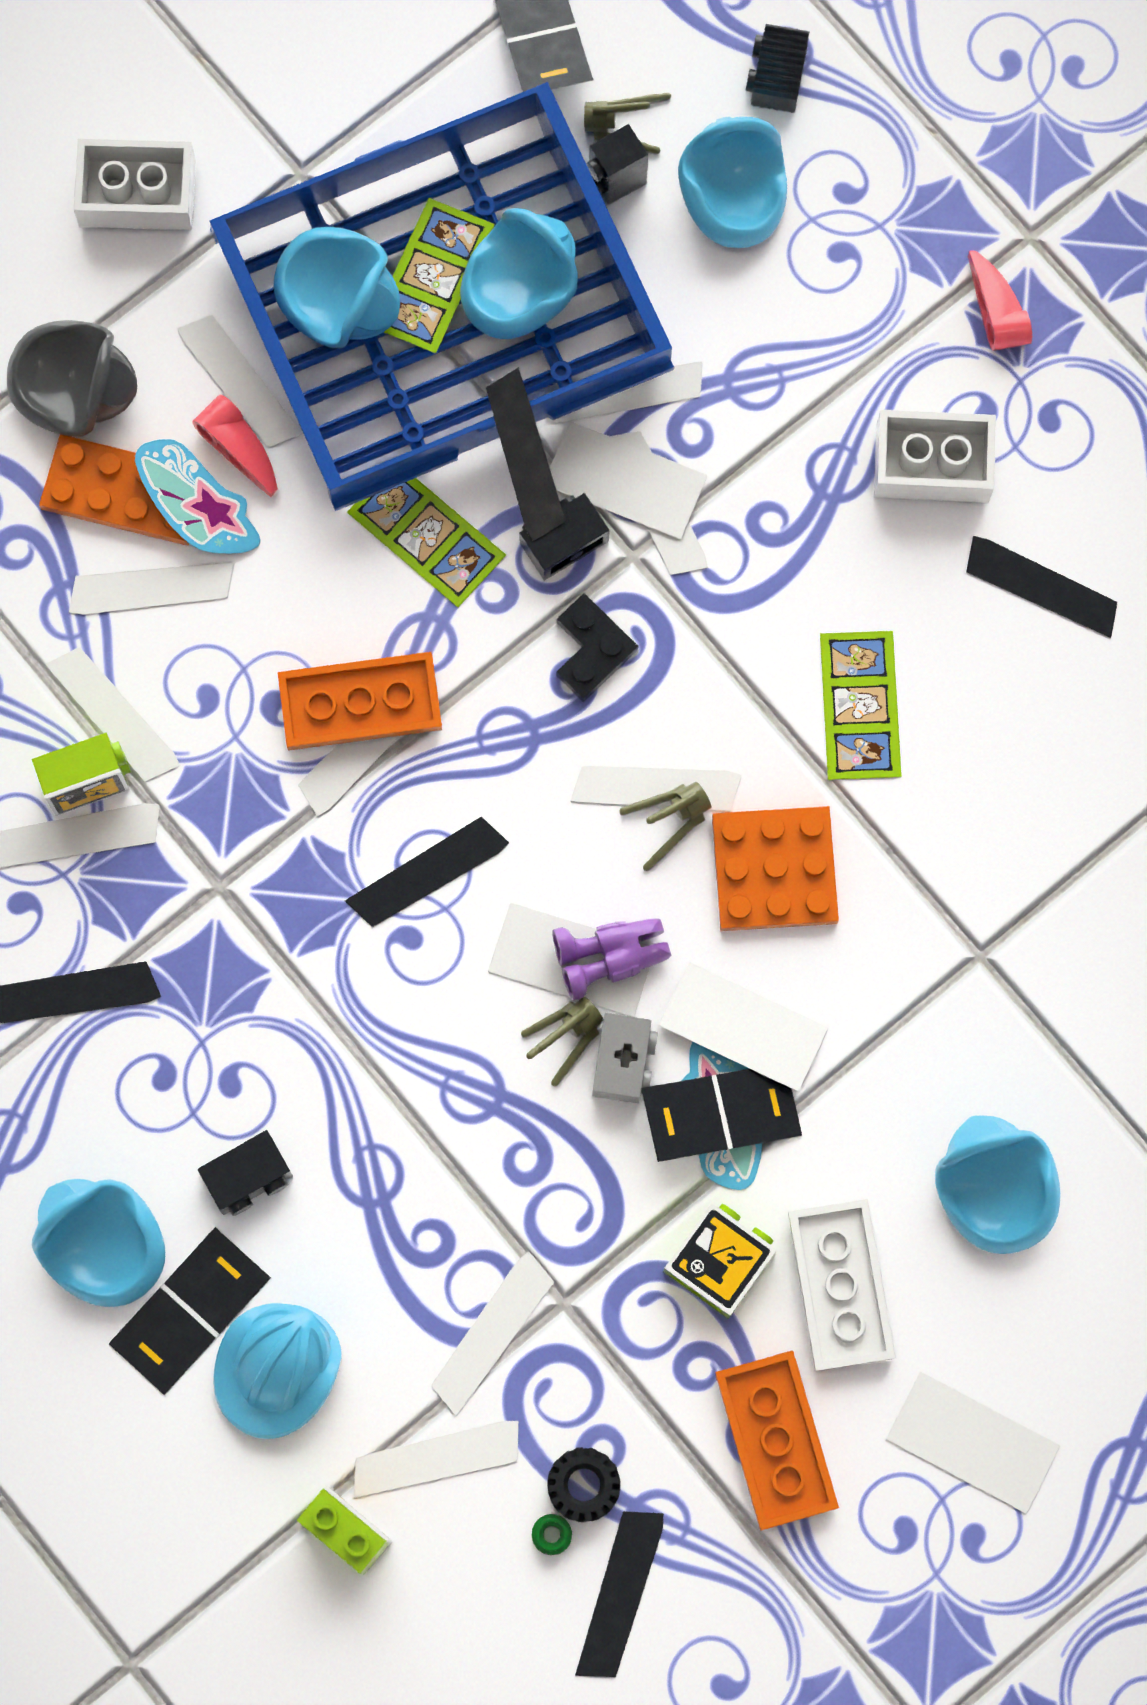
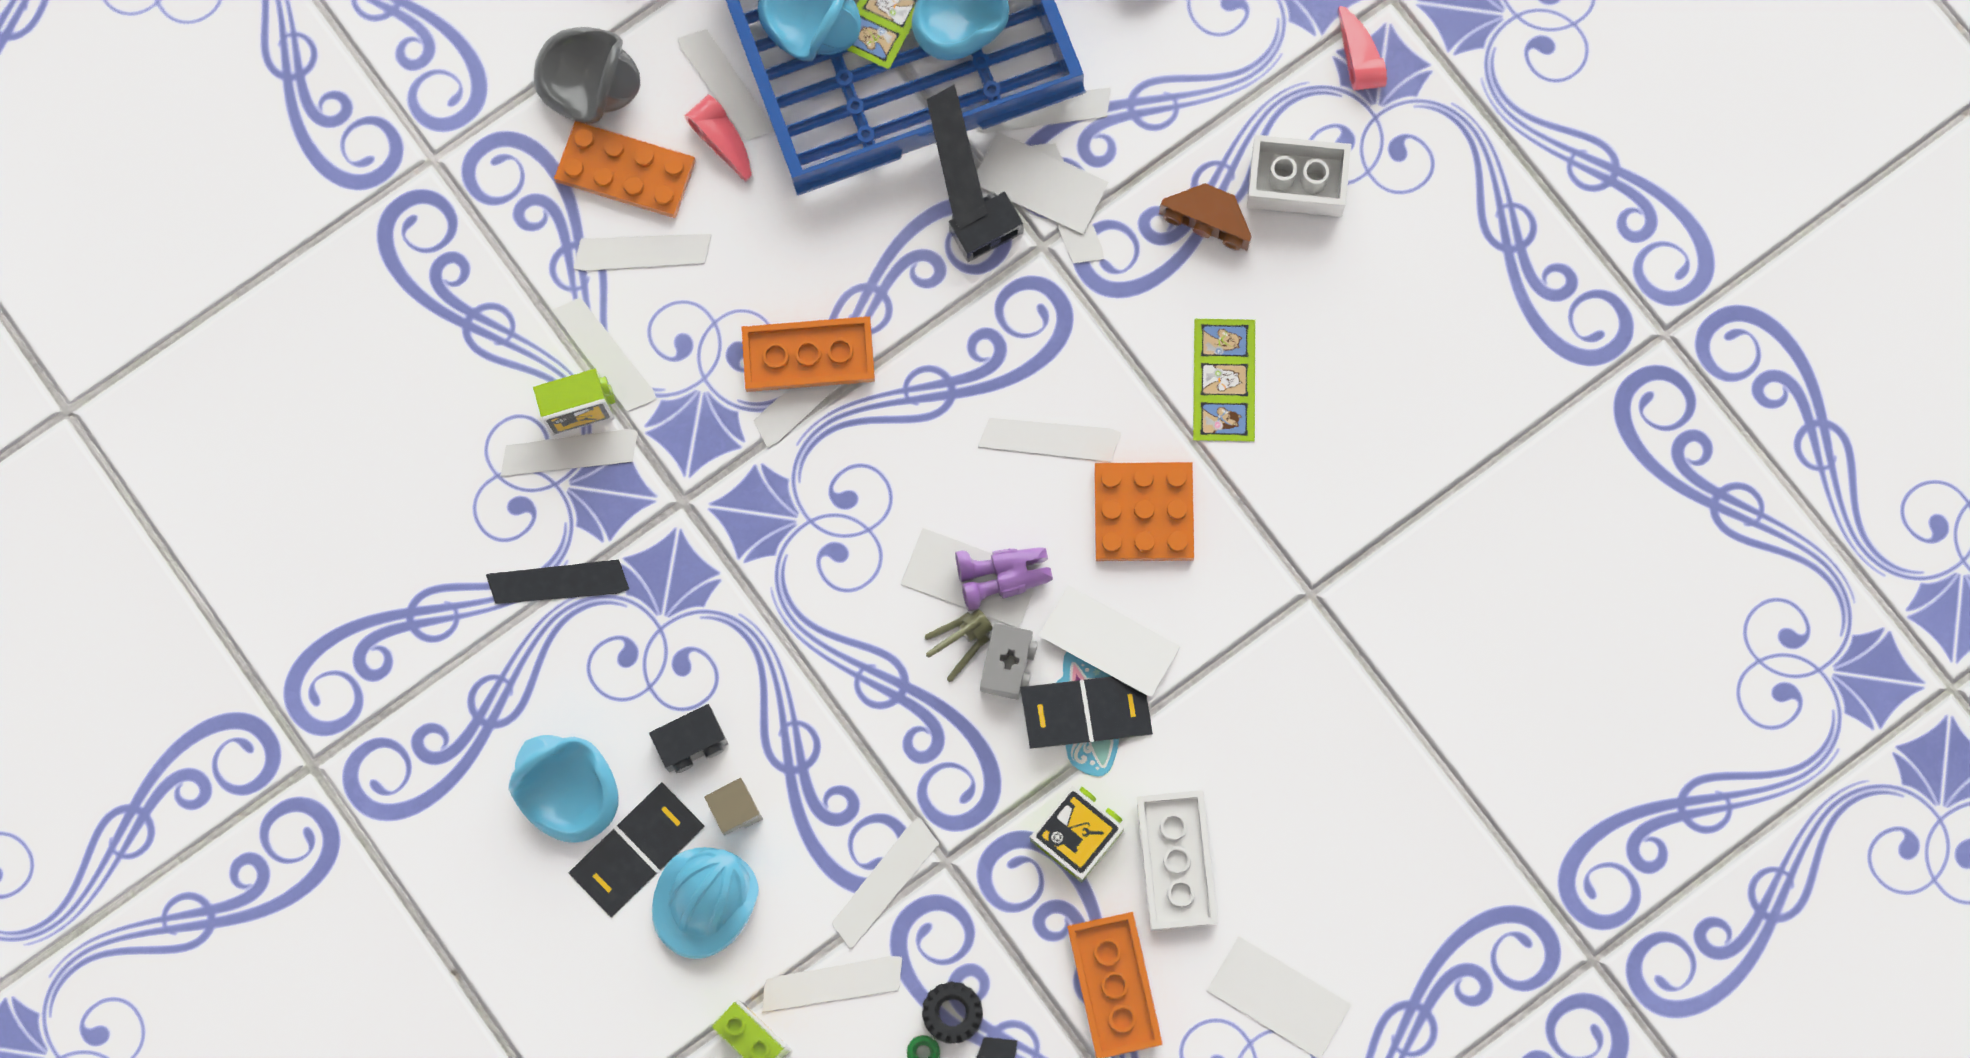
camera: 10 degrees right, 0 degrees up
(193, 499) = (681, 181): sticker -> none
(304, 1252) = (733, 807): none -> dark tan piece
(428, 871) = (856, 498): black sticker -> none
(429, 538) = (874, 222): sticker -> none
(602, 651) = (1012, 321): black plate -> none
(686, 802) = (1074, 453): olive plant -> none
(831, 508) = (1209, 214): none -> dark orange slope
(998, 1185) = (1313, 785): medium azure piece -> none
(1041, 585) = (1381, 288): black sticker -> none

